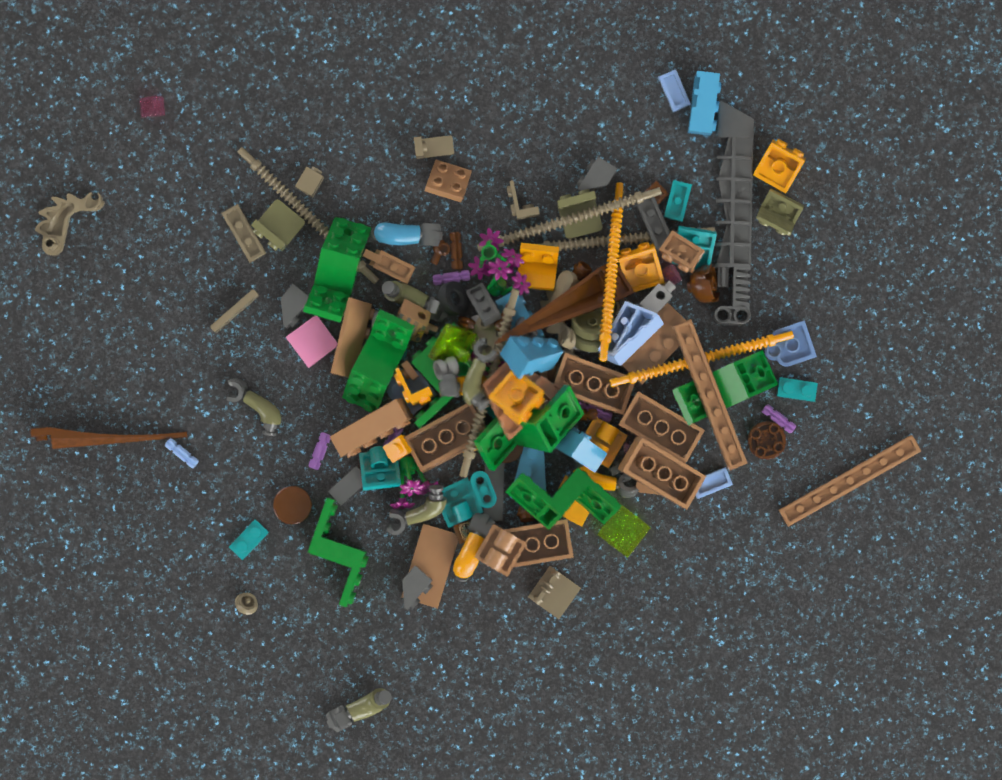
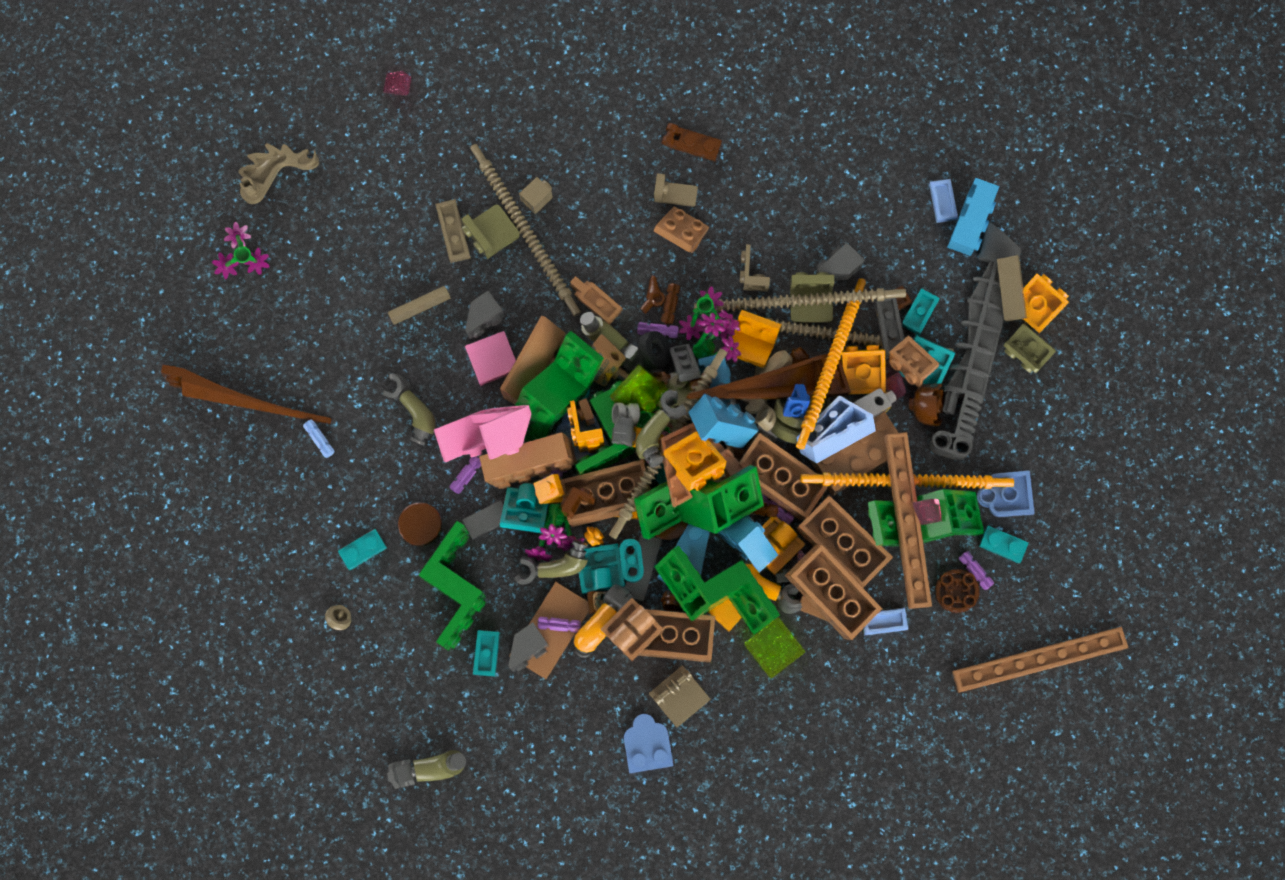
camera: 20 degrees right, 10 degrees down
(67, 309) = (240, 254): none -> magenta plant
(332, 405) = (492, 429): none -> bright pink windscreen
(337, 269) = (538, 286): green bracket -> none
(381, 600) = (486, 653): none -> teal plate
(398, 234) = (618, 270): dark azure piece -> none
(420, 455) = (571, 503): none -> reddish brown bracket
(436, 94) = (692, 142): none -> reddish brown plate
(436, 560) = (559, 624): none -> medium lavender axle
(445, 476) = (594, 536): none -> light orange plate
(538, 640) = (647, 745): none -> medium blue plate
(591, 320) = (797, 403): none -> blue bracket
(725, 384) = (928, 511): none -> clear pink slope
(752, 160) = (1011, 288): none -> dark tan tile

